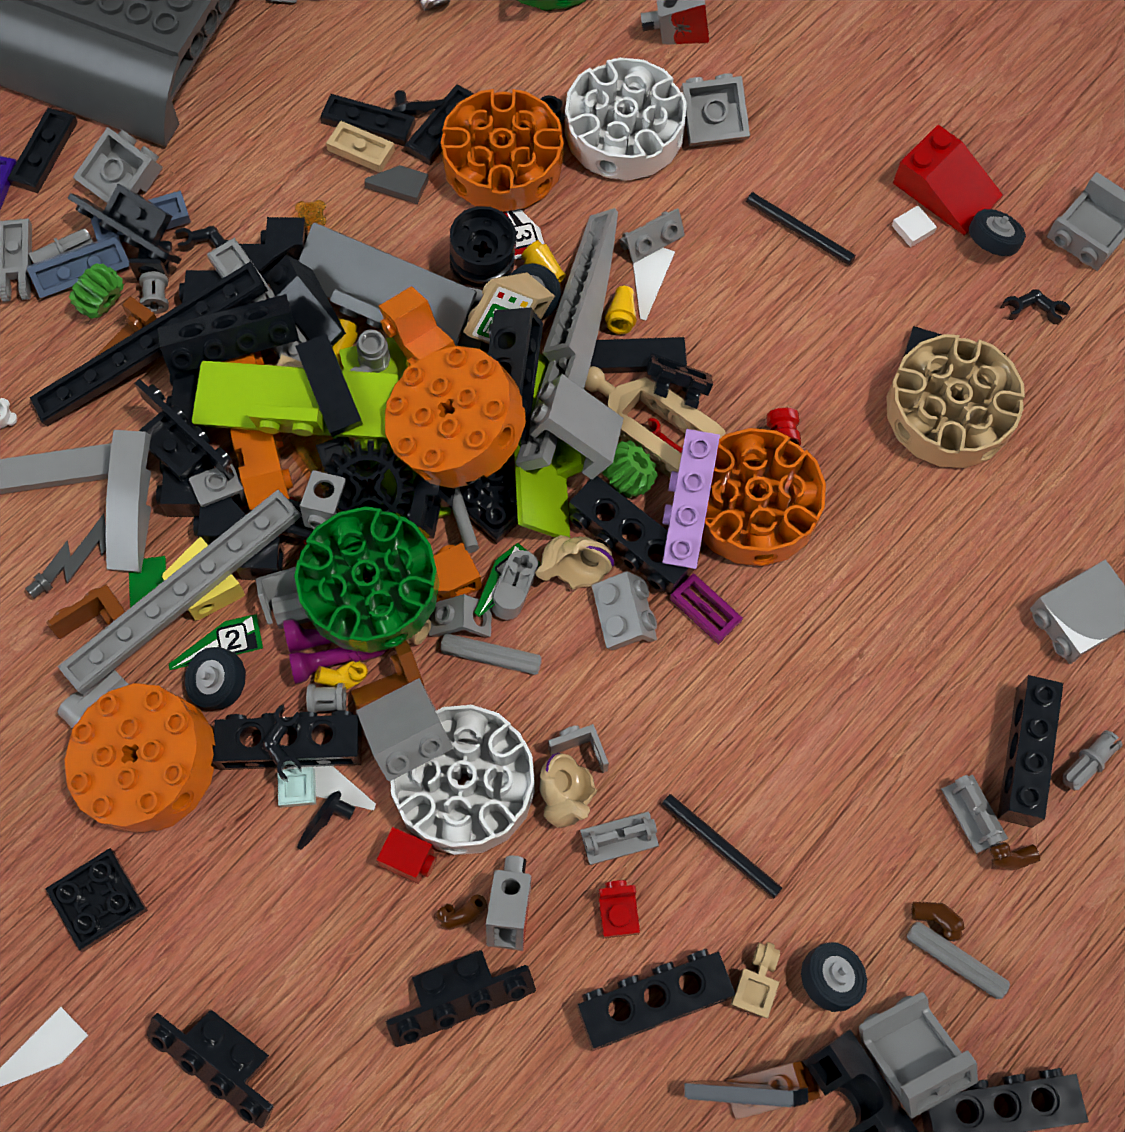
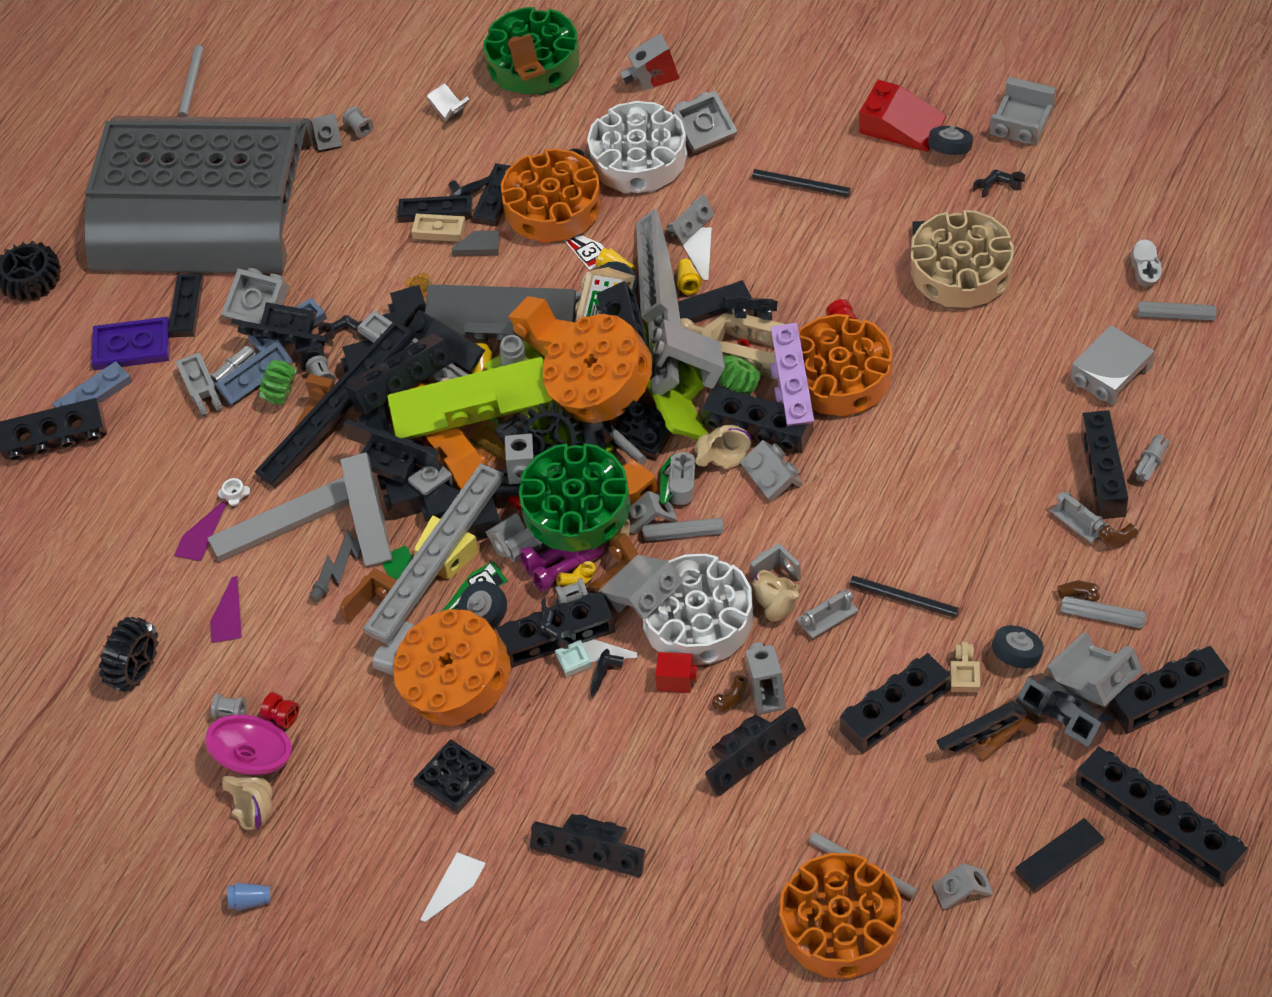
camera: 10 degrees left, 15 degrees down
(329, 385) = (493, 378): black tile -> none
(477, 234) = (564, 260): black wheel -> none
(618, 909) = (845, 657): red bracket -> none
(697, 617) = (829, 454): magenta tile -> none
(914, 226) = (886, 155): white tile -> none

